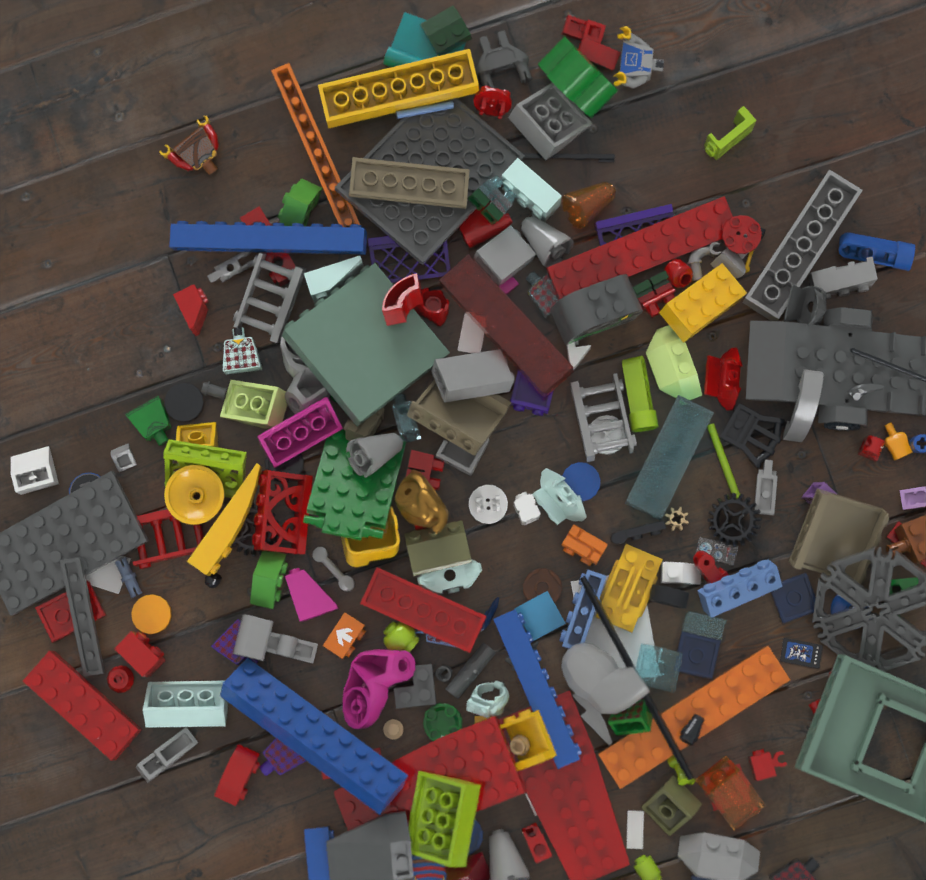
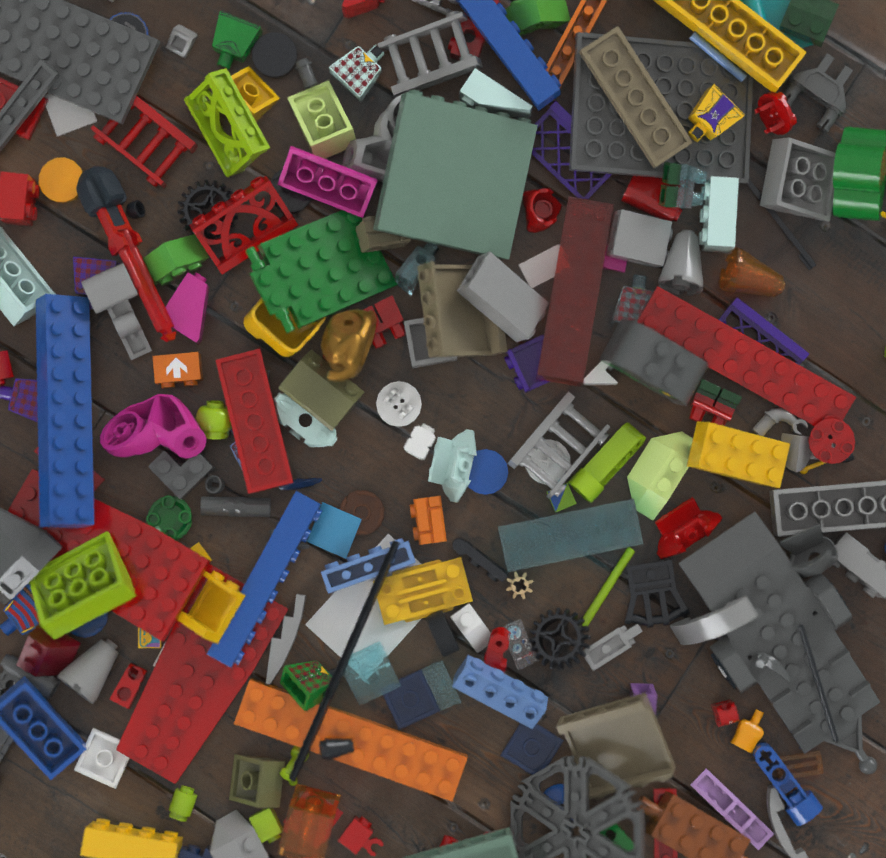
camera: 45 degrees right, 5 degrees up
(128, 577) = (77, 133): sand blue pin -> none
(181, 491) = (190, 117): yellow dish -> none
(186, 594) = (103, 198): none -> red piece
(226, 528) = (189, 184): yellow slope -> none
(345, 582) = (226, 331): light grey bar -> none
(372, 452) = (360, 262): light grey cone -> none
(393, 729) = (129, 478): tan plate -> none
(401, 299) = (521, 176): red brick -> none
(461, 142) = (713, 114): none -> torso
(488, 708) = (211, 547): light aqua piece -> none
(514, 804) = (146, 640): none -> tile
(520, 745) = (201, 603): tan plate -> none
(600, 681) = (314, 629): light grey piece -> none
(635, 829) = (210, 764): white sticker -> none
(642, 445) = (564, 500): none -> lime tile
(679, 273) = (749, 411): red head -> none
(707, 822) = (266, 825): none -> lime brick
(801, 653) = (486, 792): black sticker -> none

